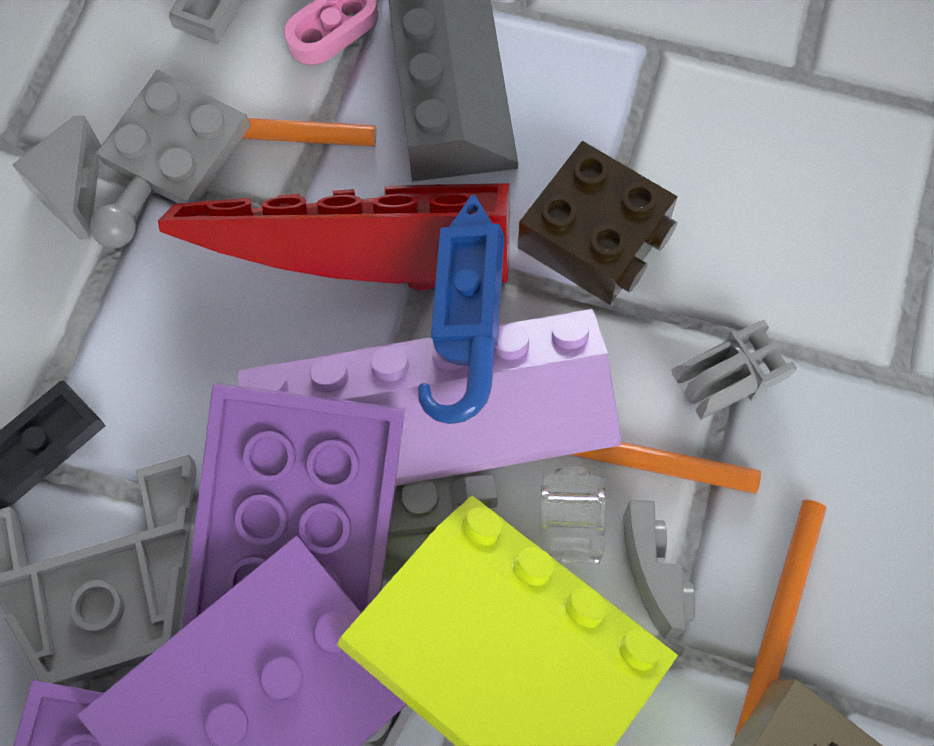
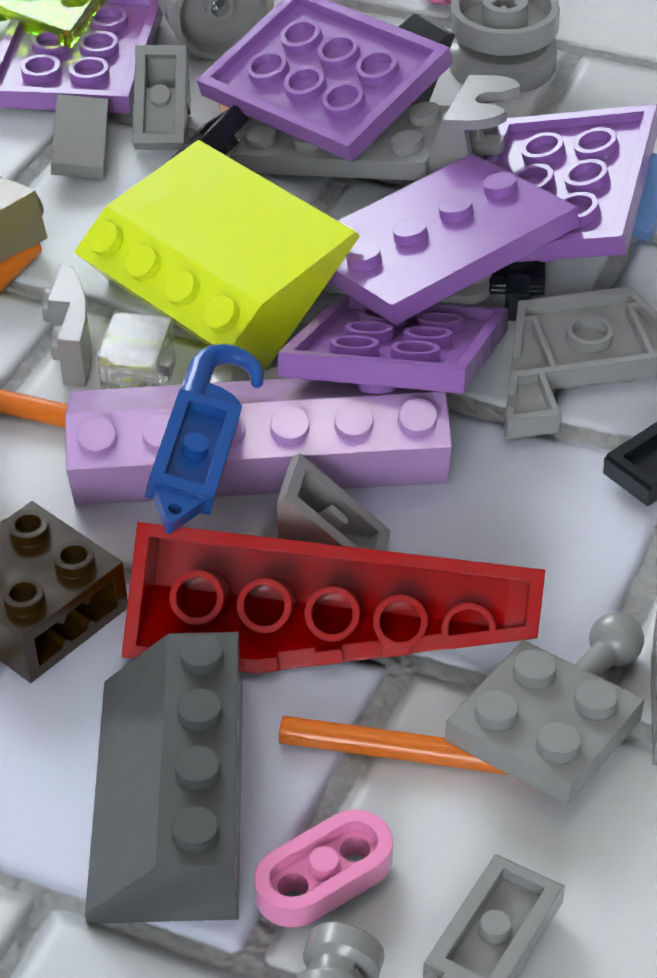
camera: 175 degrees left, 25 degrees down
(353, 310) = (322, 512): none -> light grey slope

